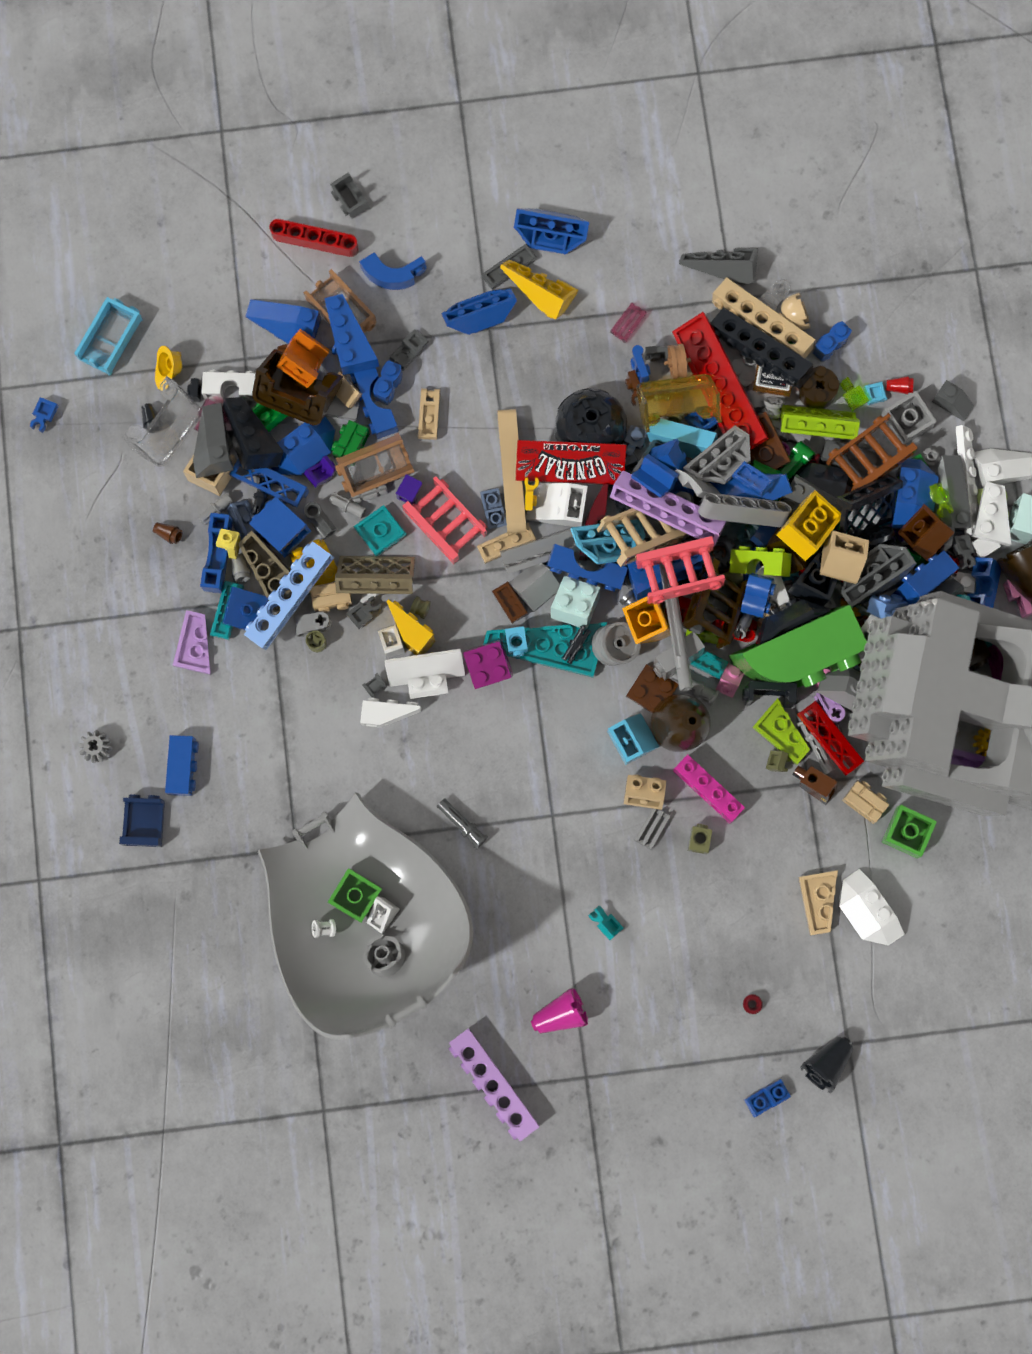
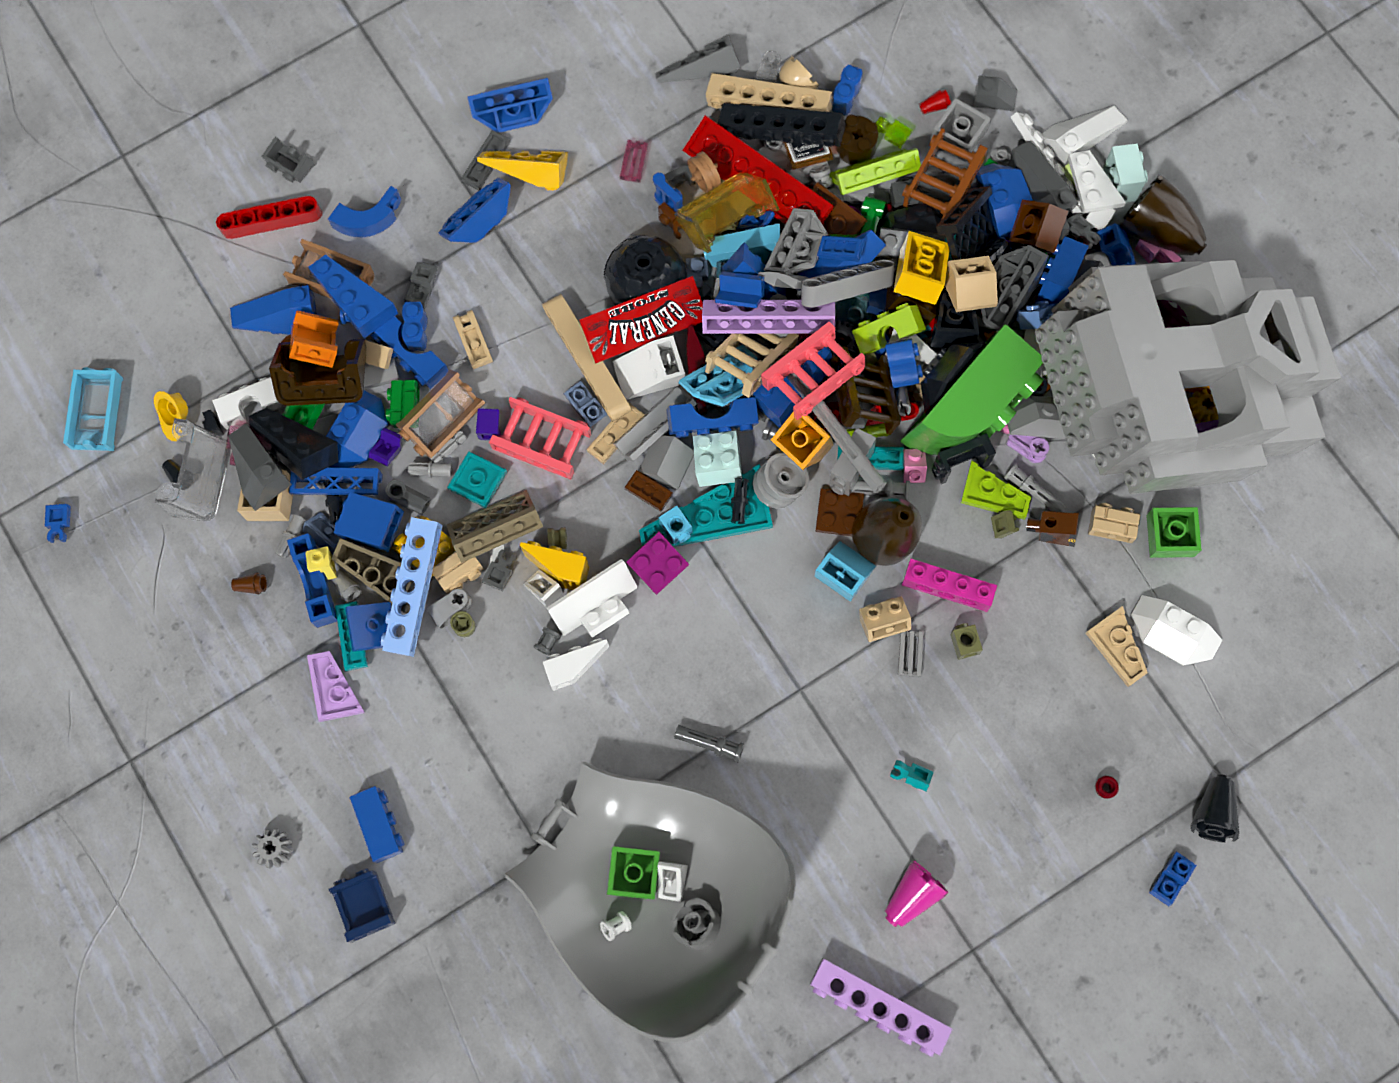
camera: 25 degrees left, 5 degrees down
(530, 499) = (620, 375): yellow plate -> none
(832, 736) = (1046, 475): red fence -> none
(875, 393) = (915, 121): medium azure tile -> none
(939, 496) = (1031, 185): clear neon green plate -> none

